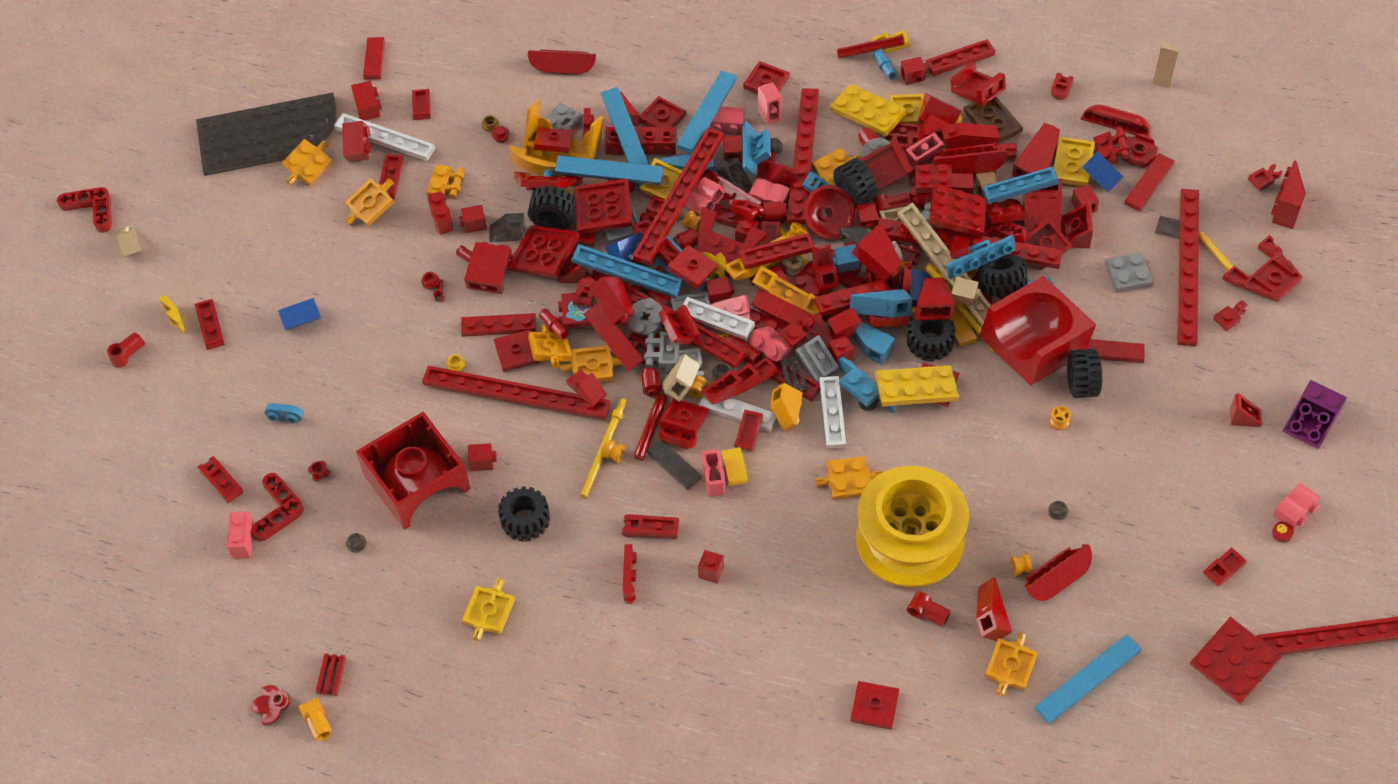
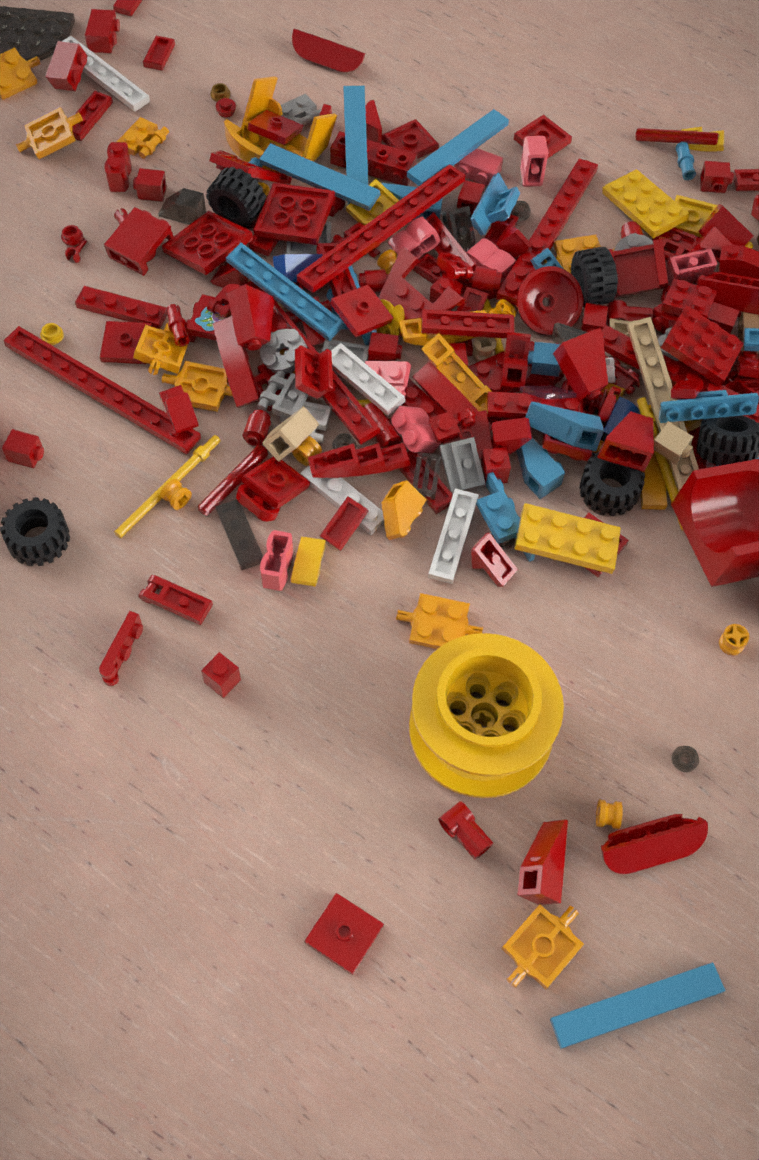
camera: 15 degrees right, 5 degrees up
(858, 283) = (548, 392): none -> clear pink piece
(869, 419) = (492, 558): none -> slope

